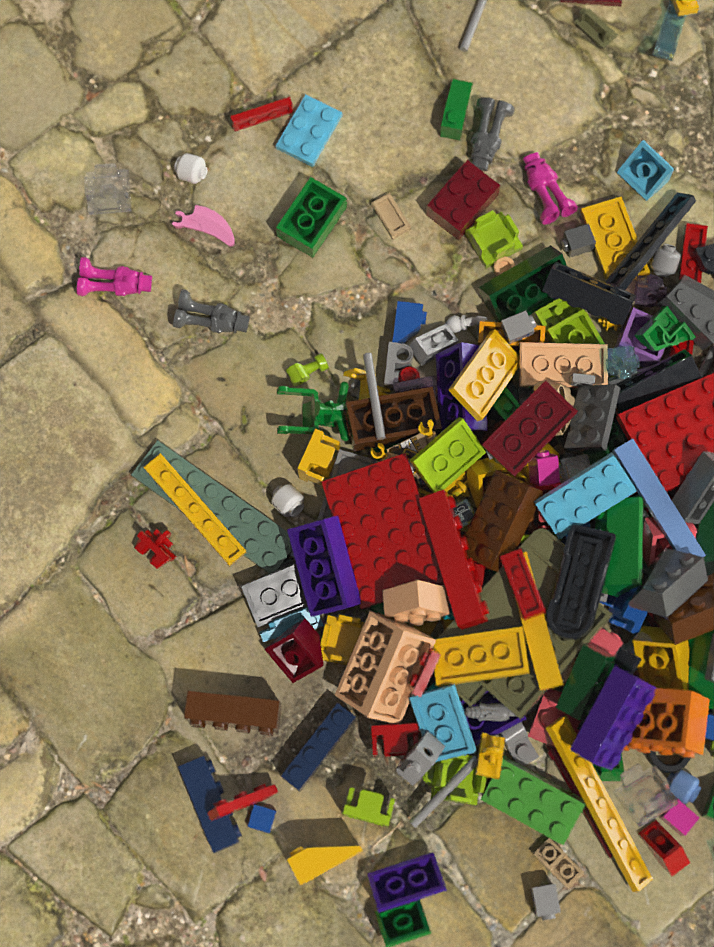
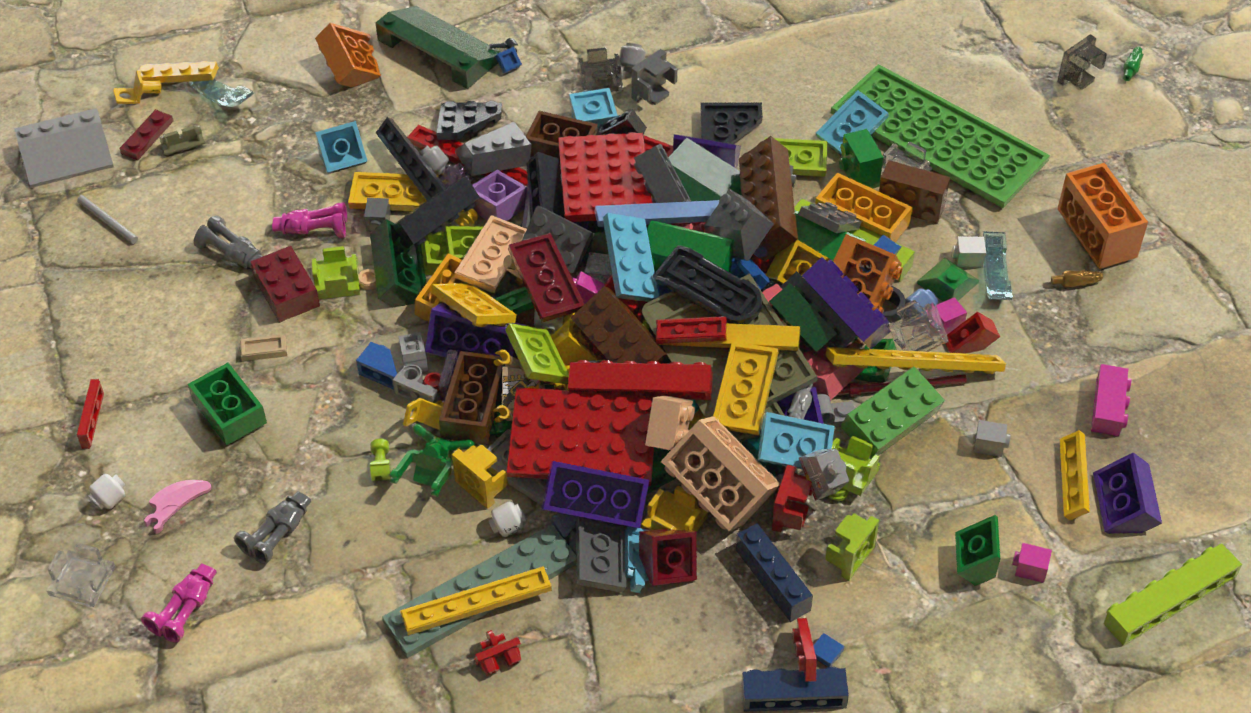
camera: 70 degrees left, 25 degrees down
(233, 711) = (708, 630): reddish brown brick -> none
(309, 130) = (133, 384): medium azure plate -> none
(315, 861) = (892, 606): yellow slope -> none
(374, 397) = (446, 394): light grey bar -> none
(406, 882) = (939, 535): dark purple slope -> none
(419, 680) = (742, 431): plate -> none
(444, 791) = (860, 474): light grey bar -> none
(456, 109) = (193, 262): green slope -> none
(458, 323) = (404, 325): white bar -> none
(490, 756) = (843, 420): yellow hips -> none
(518, 327) = (439, 267): light grey brick -> none
(558, 863) = (958, 421): tan slope -> none
(581, 379) = (516, 235): light grey tile -> none
(623, 355) = (514, 207): clear light blue brick -> none
(664, 331) = (500, 175): green slope -> none

